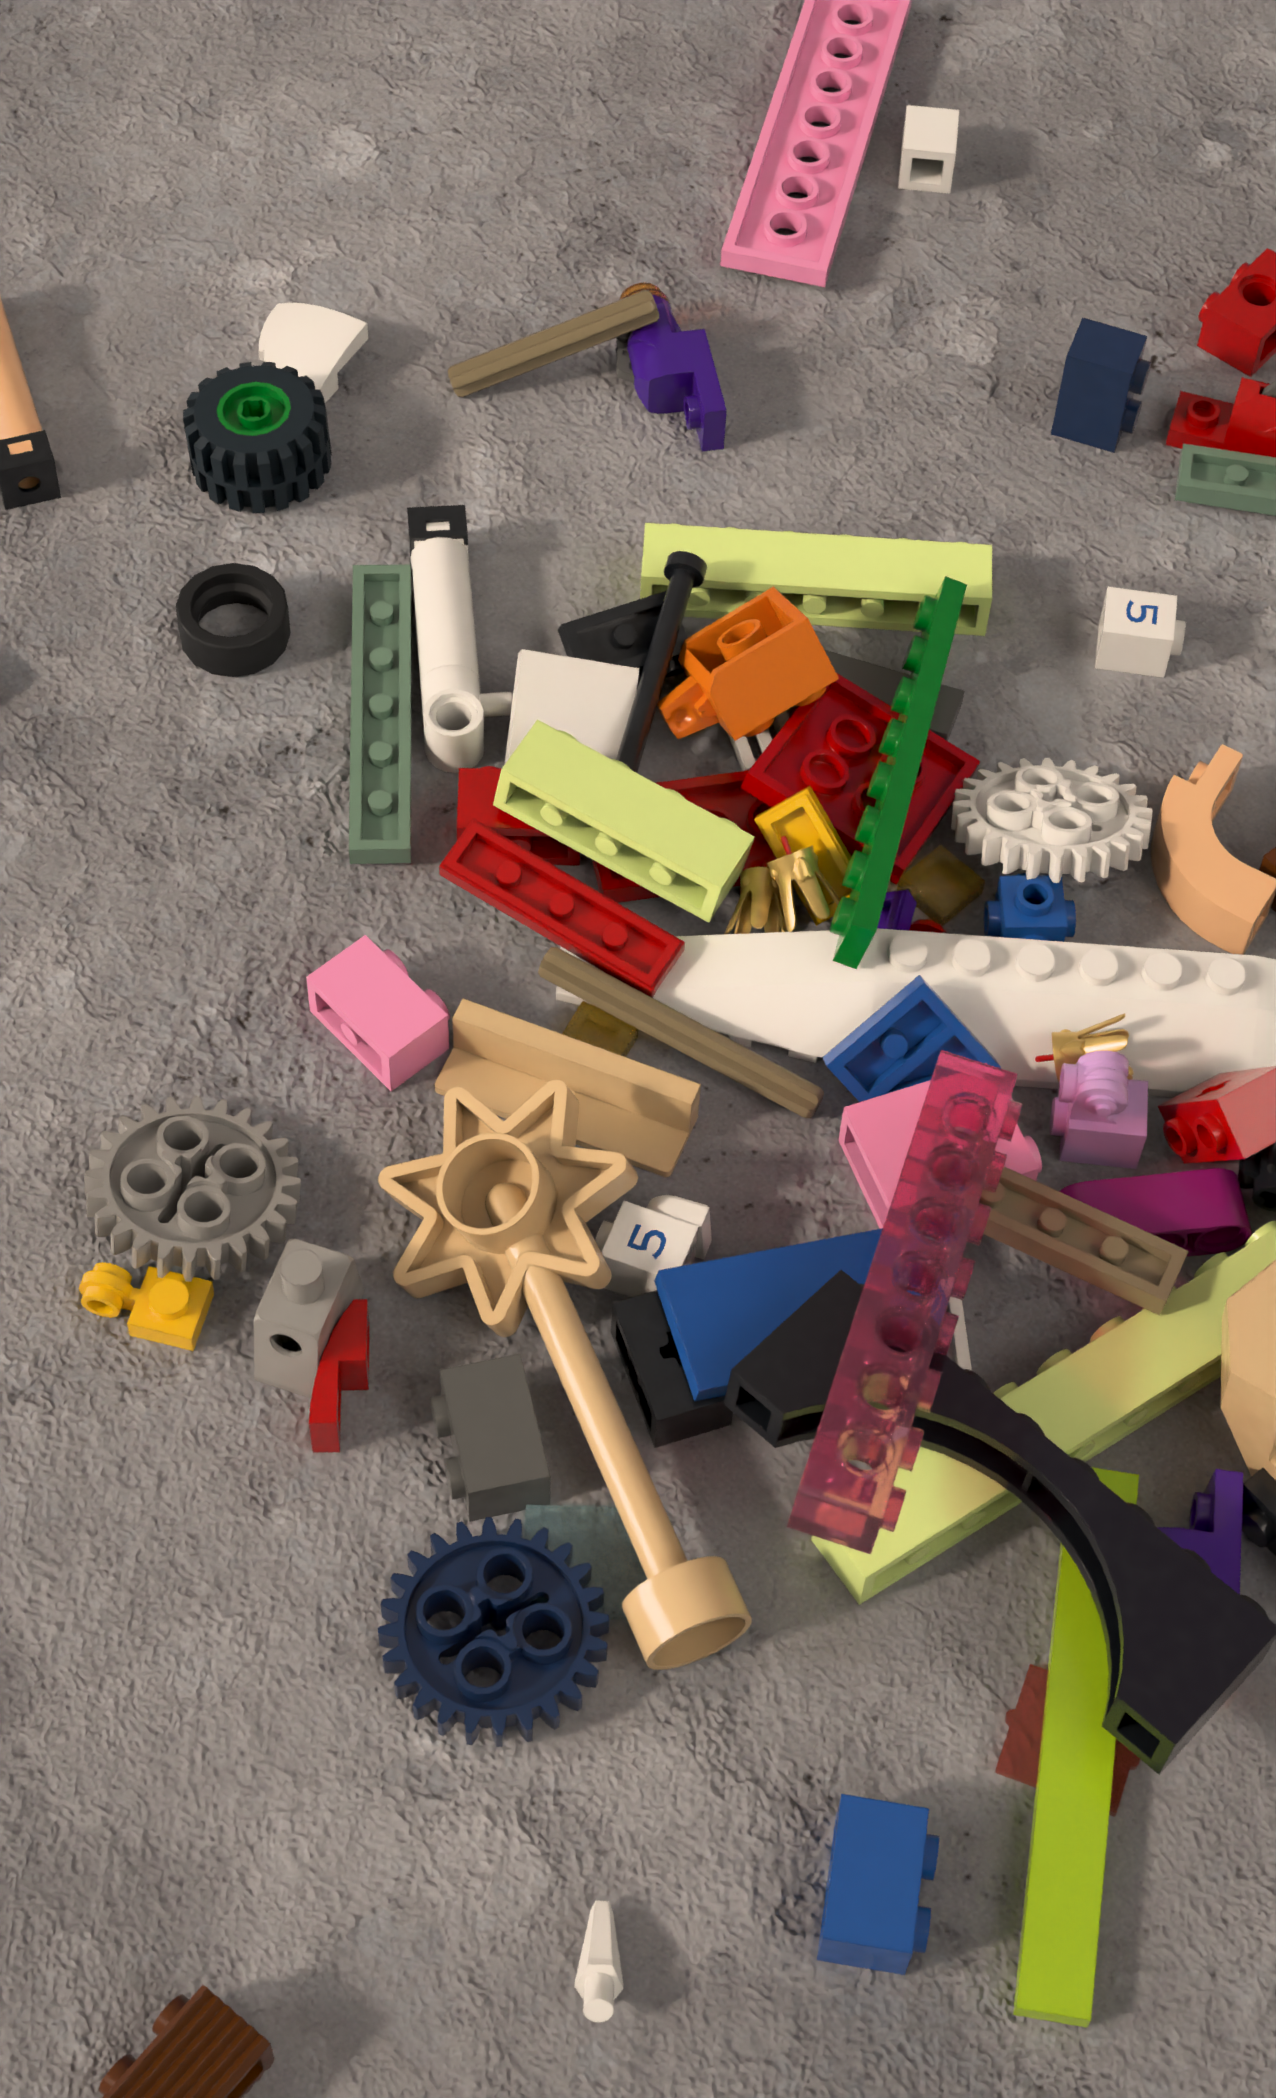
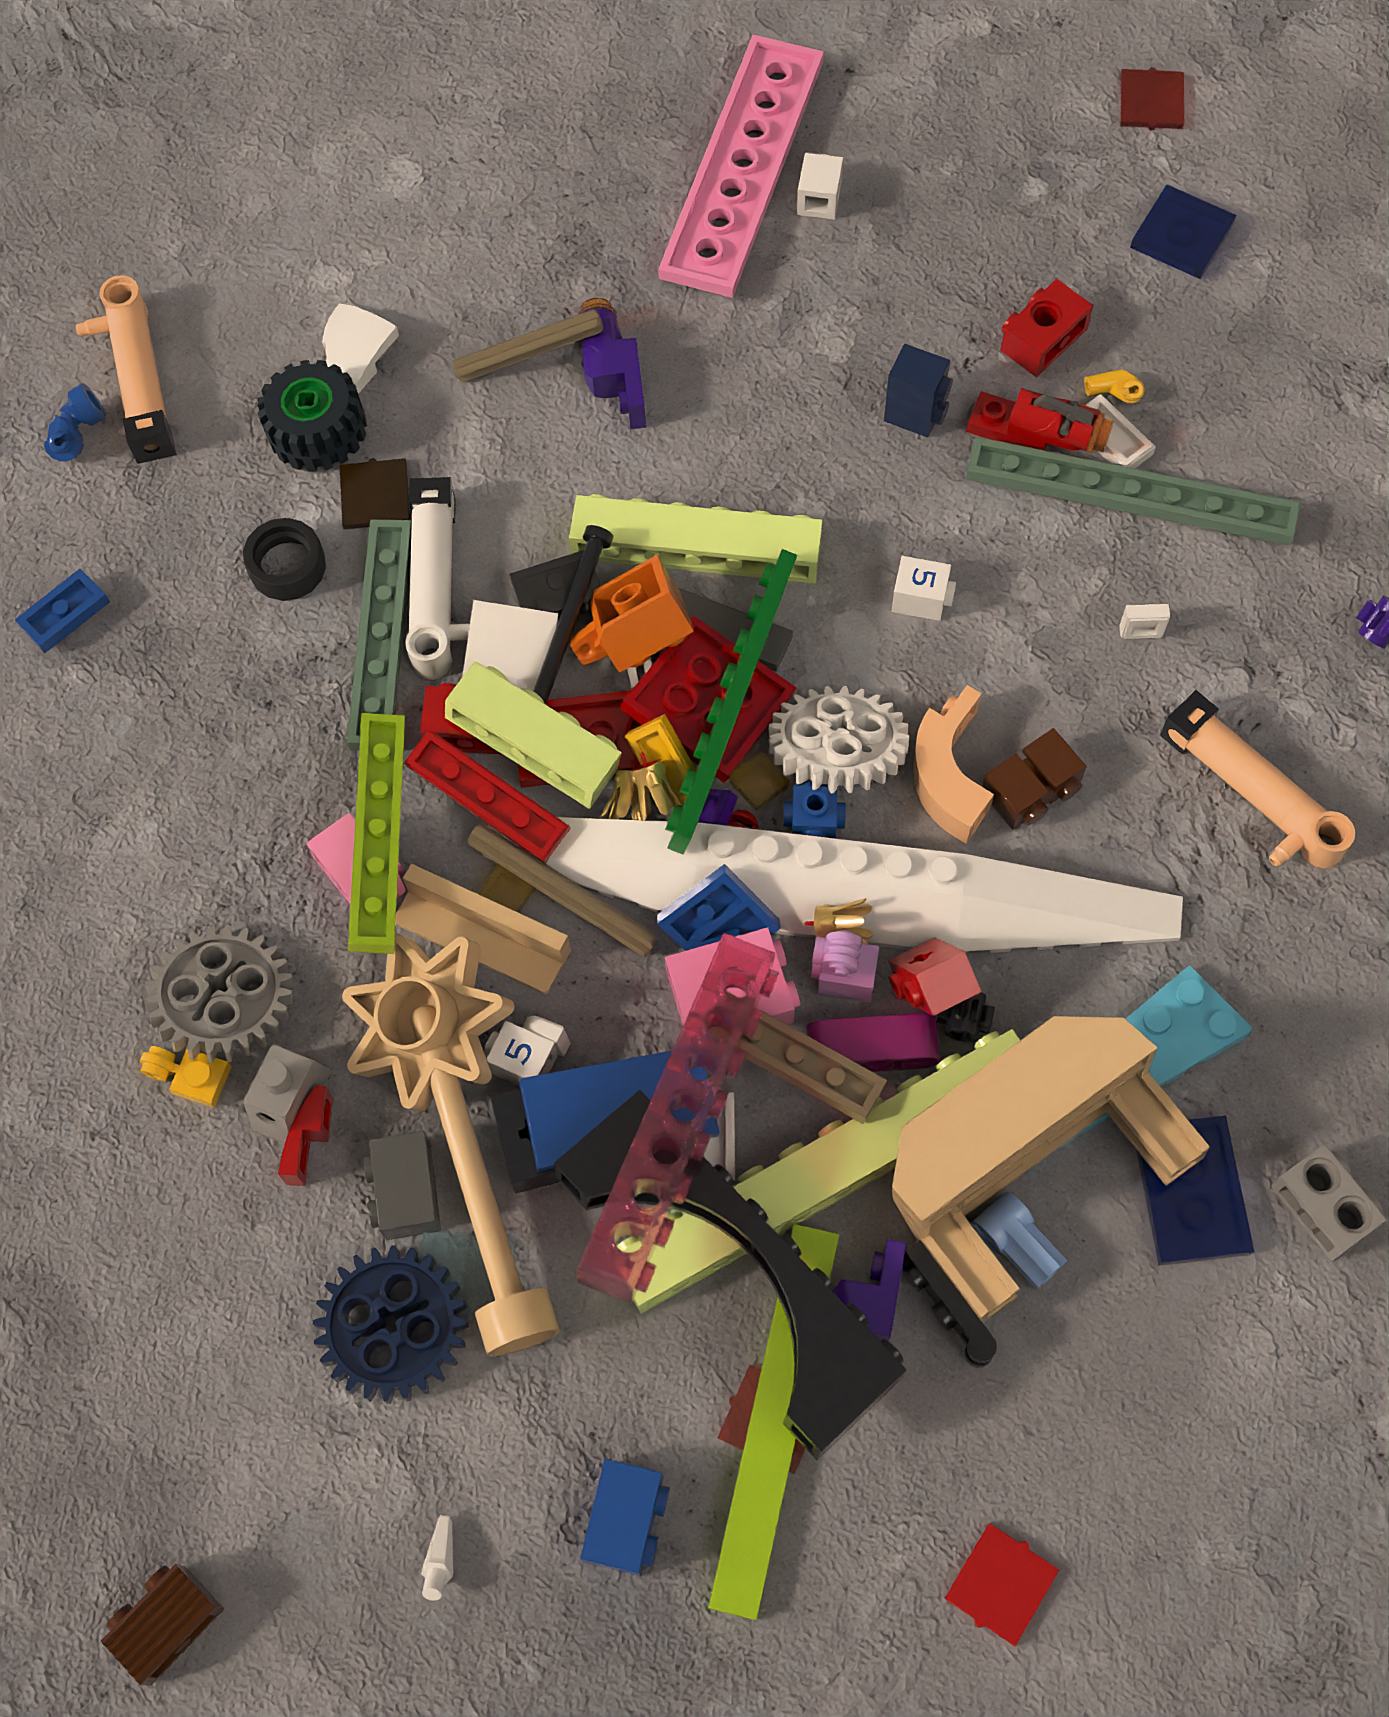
camera: 10 degrees right, 10 degrees up
(348, 534) = (374, 492): none -> dark brown piece
(413, 958) = (376, 834): none -> lime plate

